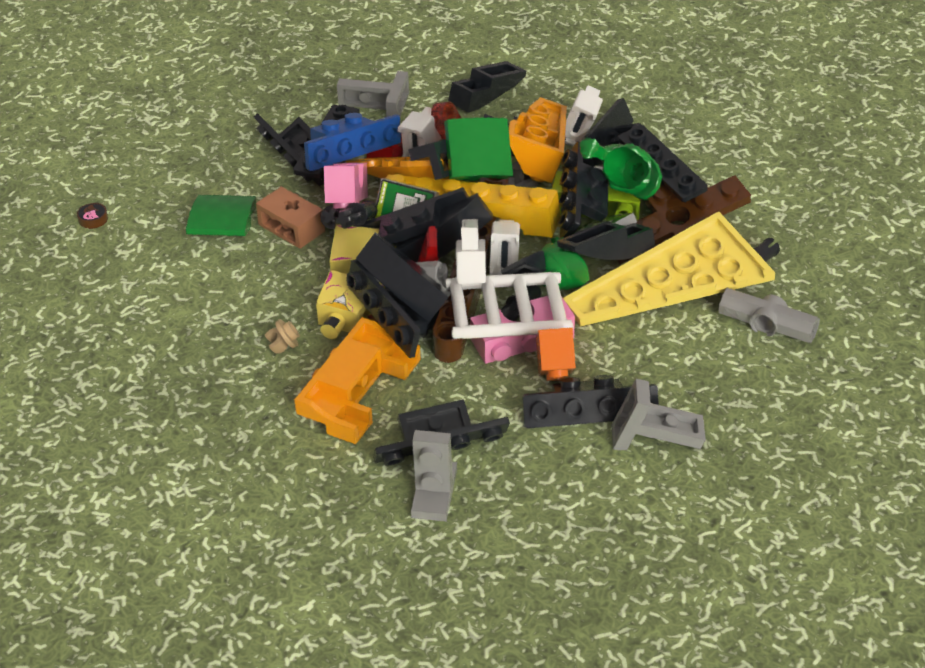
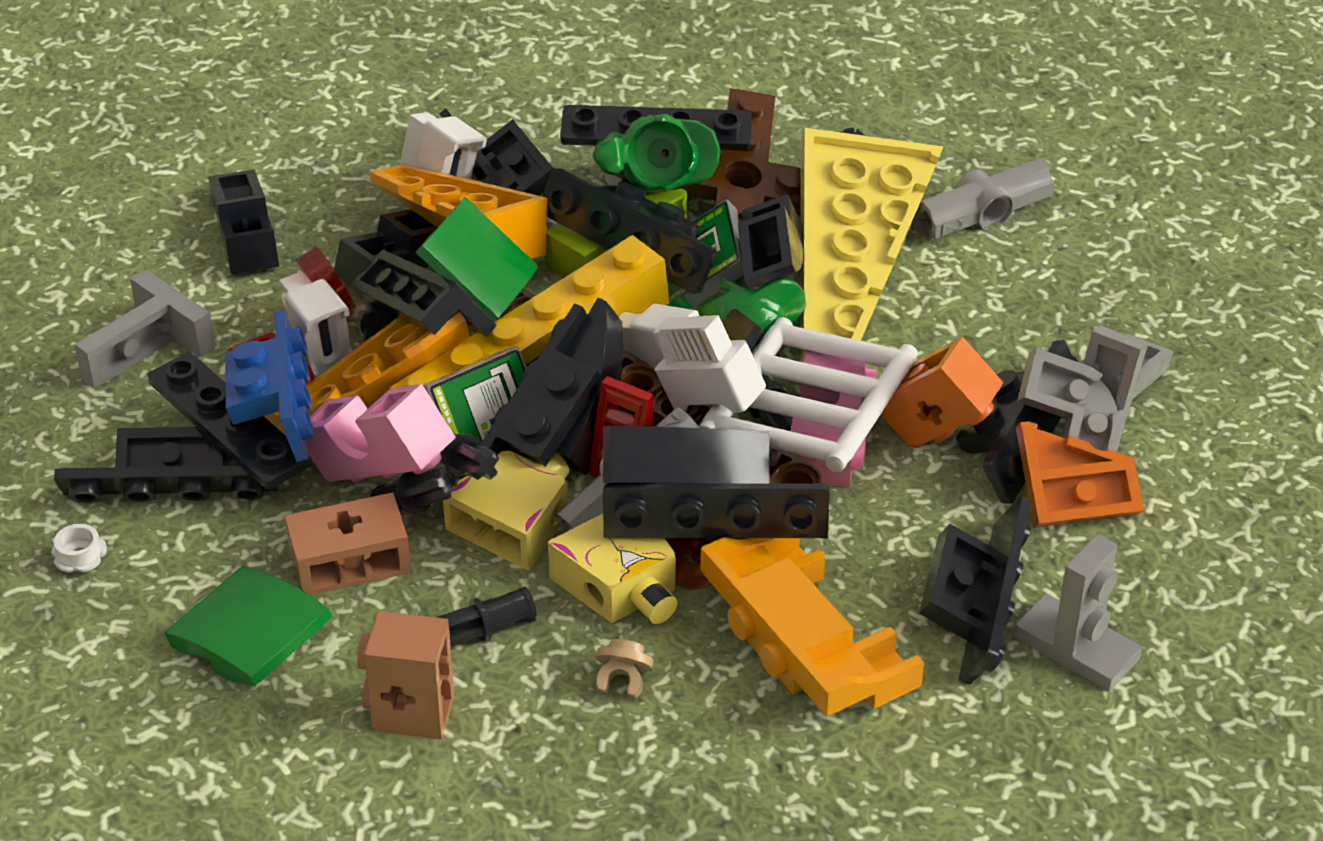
camera: 60 degrees left, 0 degrees up
(92, 215) = (68, 793): tile -> none
(209, 266) = (407, 674): none -> nougat brick
(229, 147) = (78, 548): none -> white plate
(280, 280) = (490, 616): none -> black axle
(550, 436) = (1074, 480): none -> orange wing
(603, 412) = (1075, 394): none -> light grey plate

